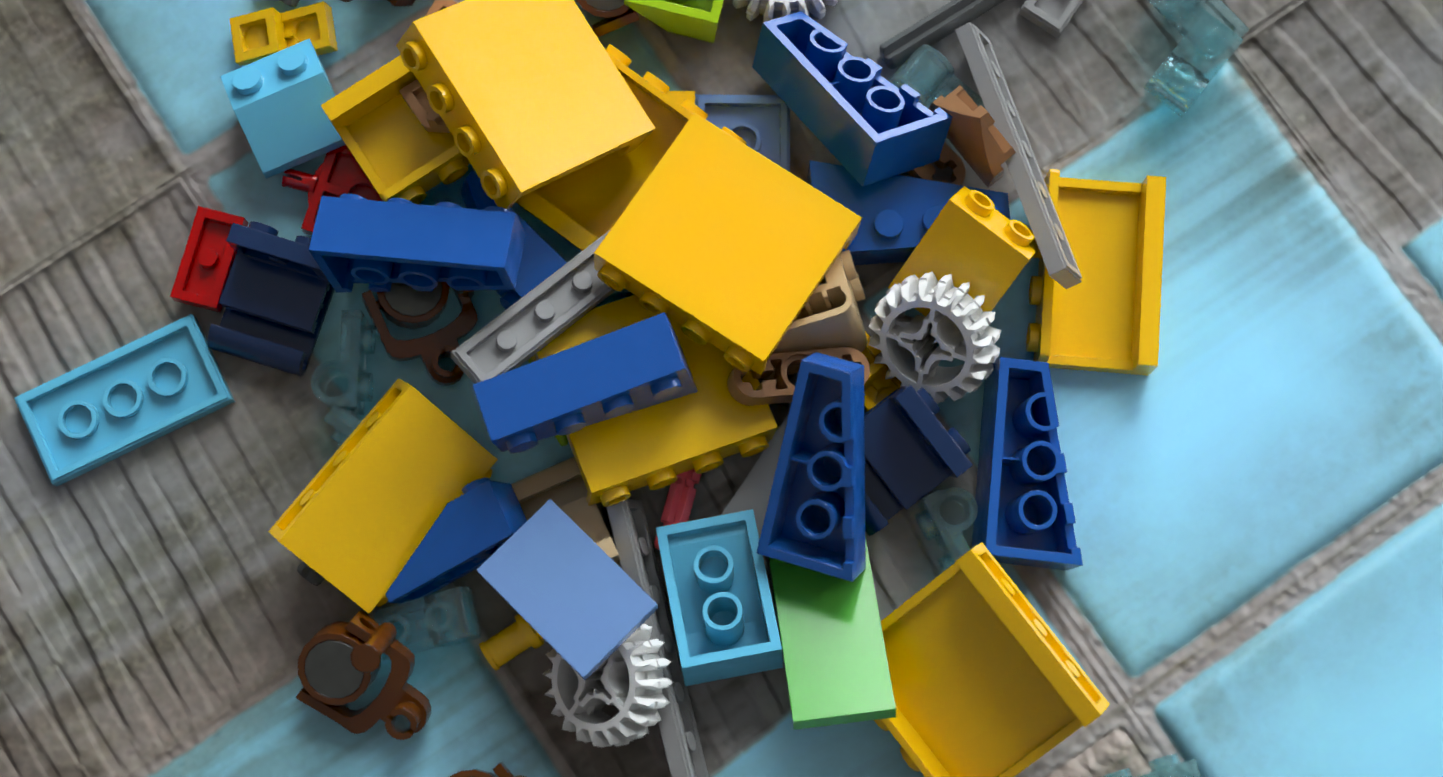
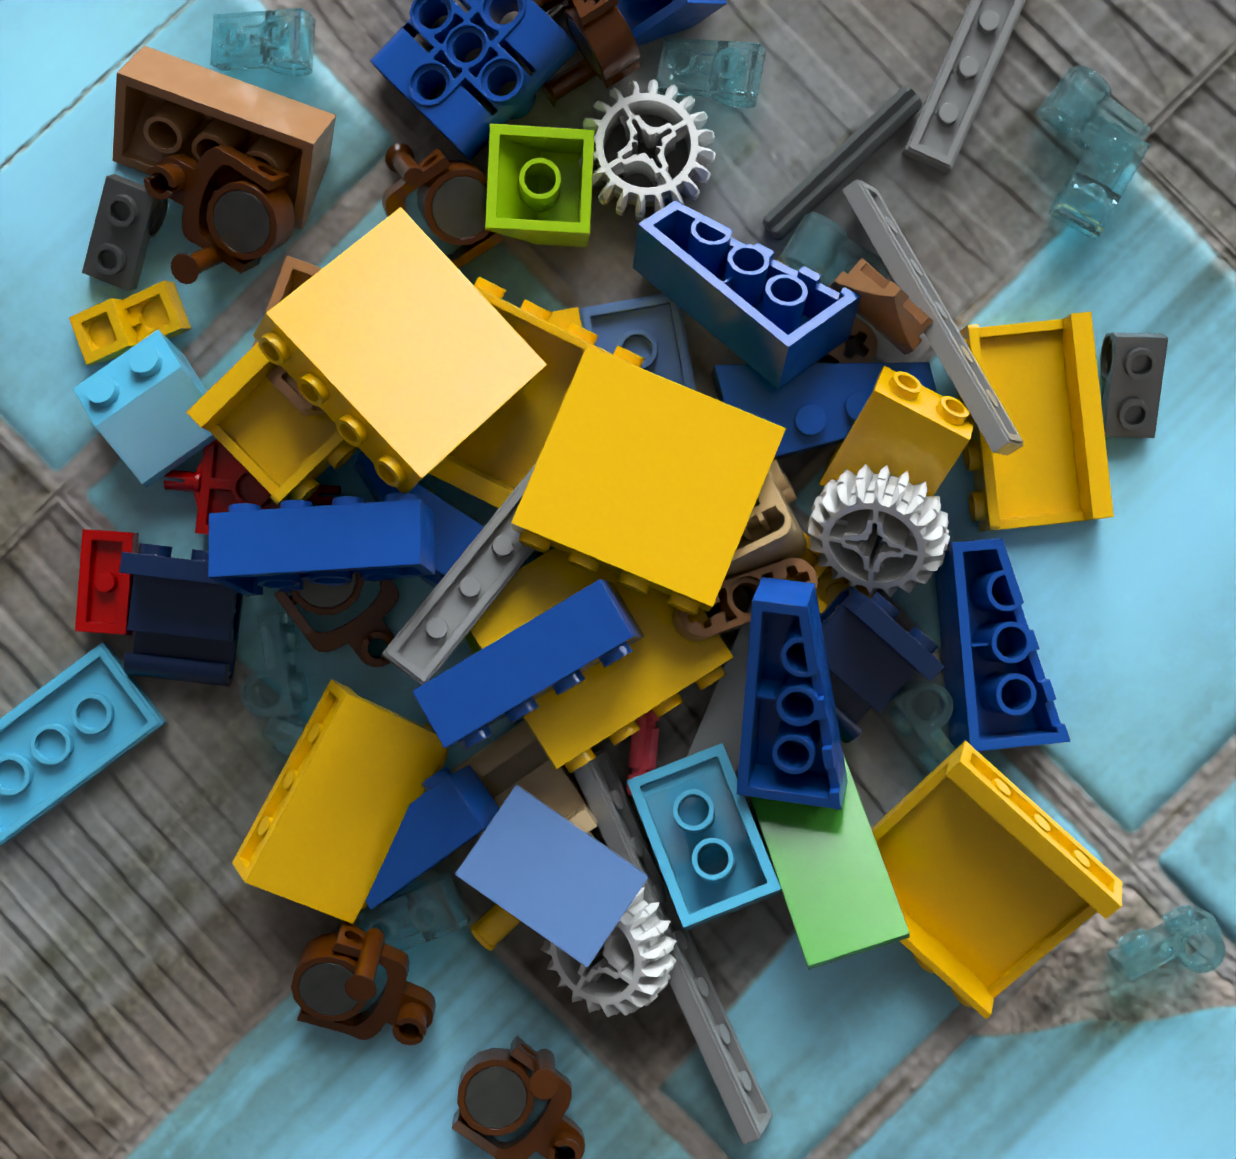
camera: 15 degrees left, 10 degrees up
(1196, 253) = (1133, 382): none -> dark grey plate

